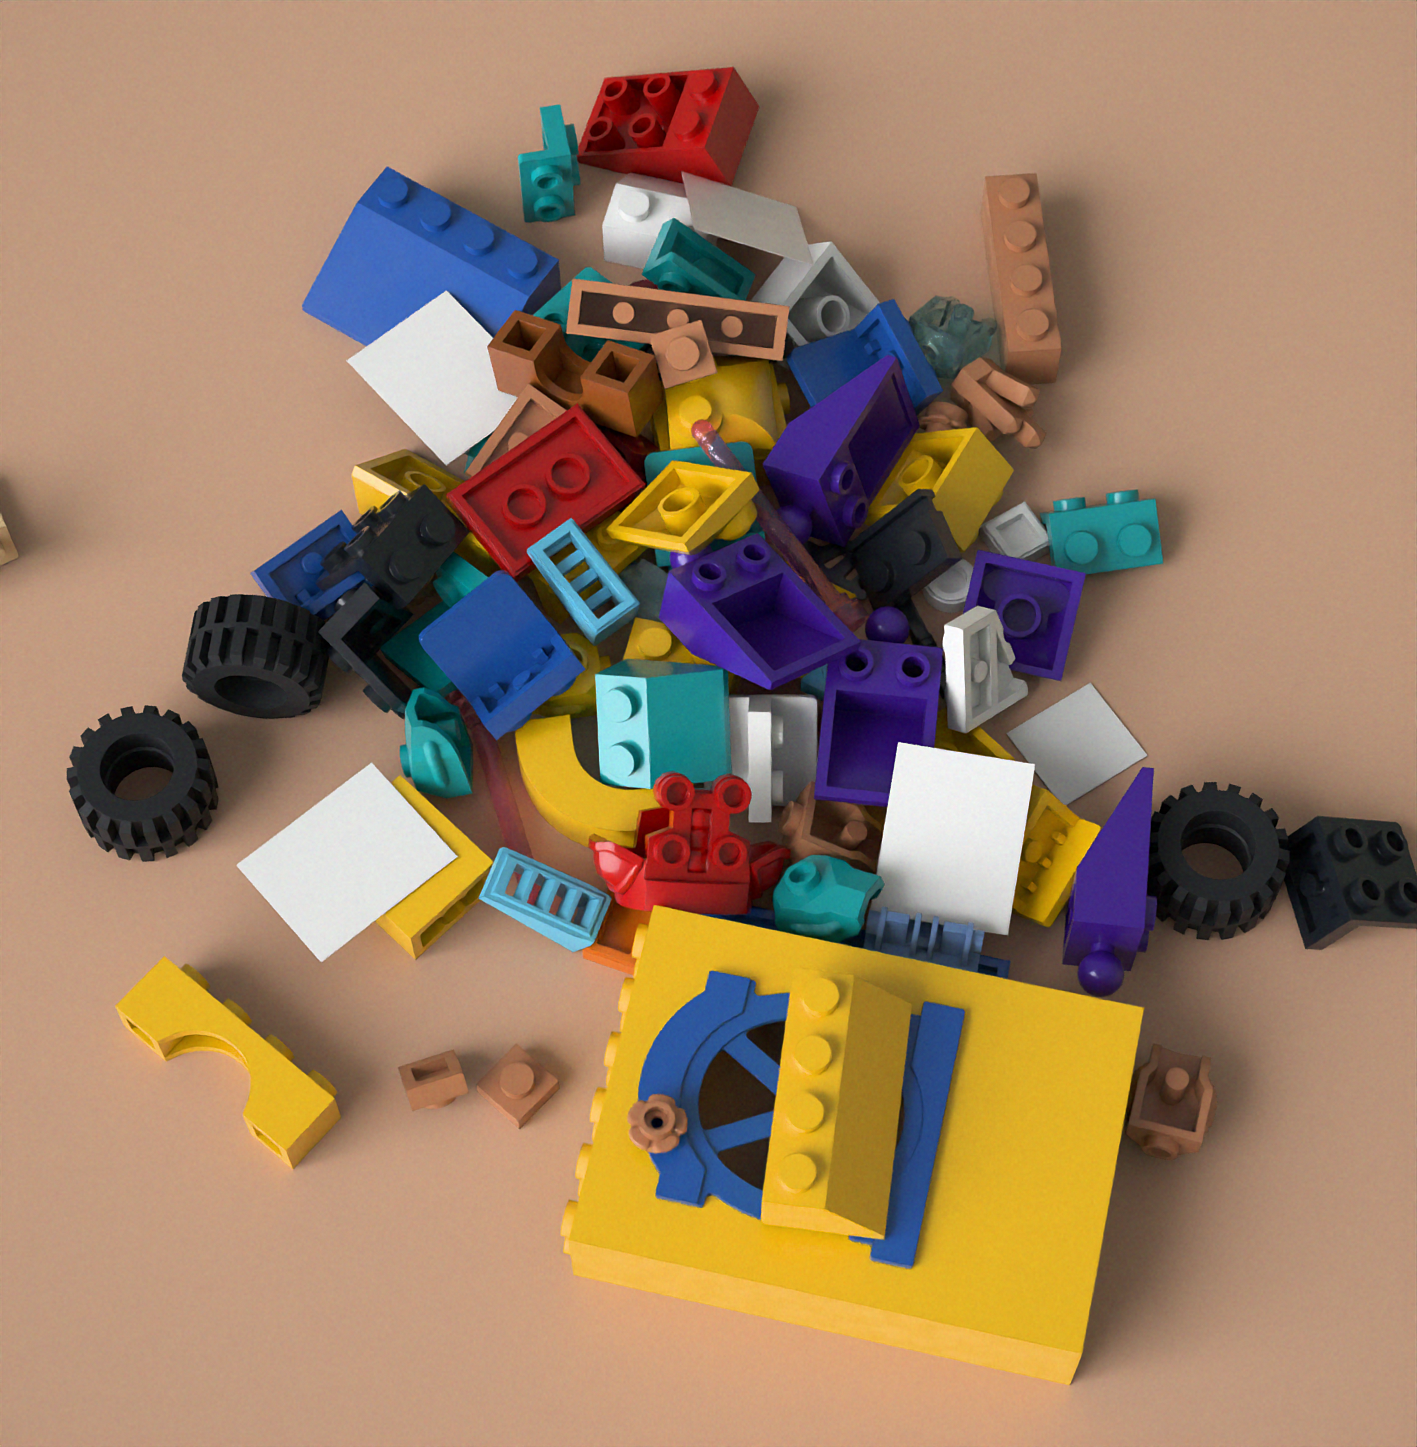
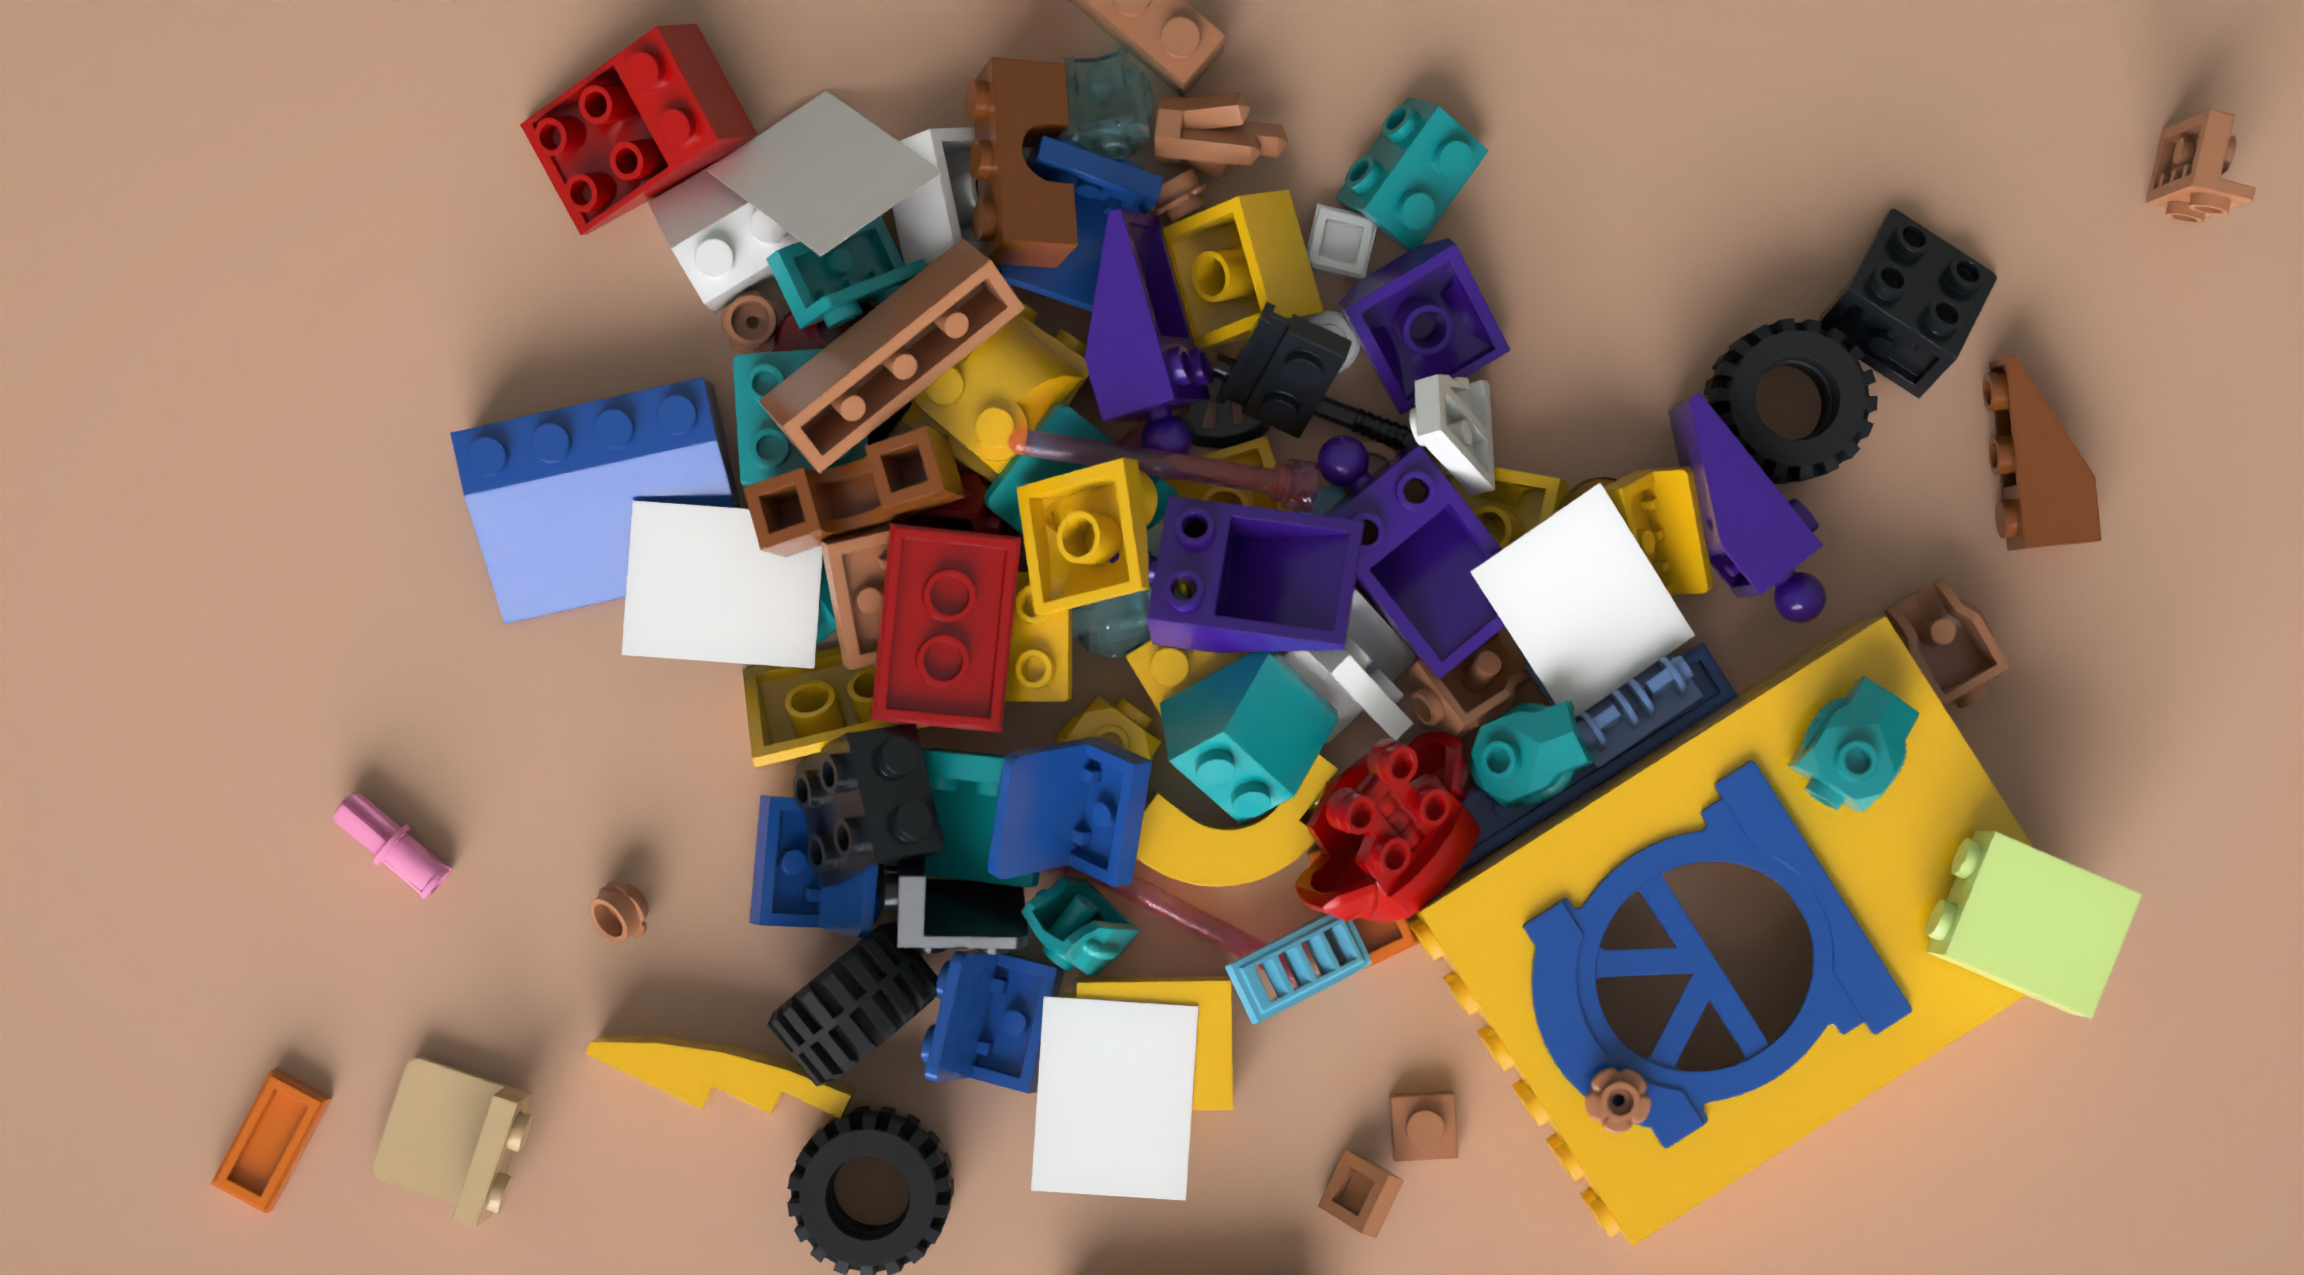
camera: 50 degrees left, 25 degrees up
(104, 357) = (391, 844): none -> bright pink axle
(132, 632) = (696, 1068): none -> yellow slope
(185, 503) = (619, 911): none -> nougat plate
(320, 739) = (990, 1019): none -> blue bracket
(550, 174) = (612, 303): teal bracket -> none
(582, 611) = (1115, 681): medium azure slope -> none
(621, 265) = (735, 320): none -> nougat plate
(683, 354) = (941, 393): nougat plate -> none
(836, 1106) = (1743, 951): yellow slope -> none
(839, 329) = (1017, 212): none -> dark orange arch
(1040, 1053) = (1855, 746): none -> teal hand
(1049, 1273) = (2031, 922): none -> yellowish green brick
(1076, 744) = (1568, 389): white sticker -> none
(1345, 1063) = (2043, 477): none -> dark orange slope

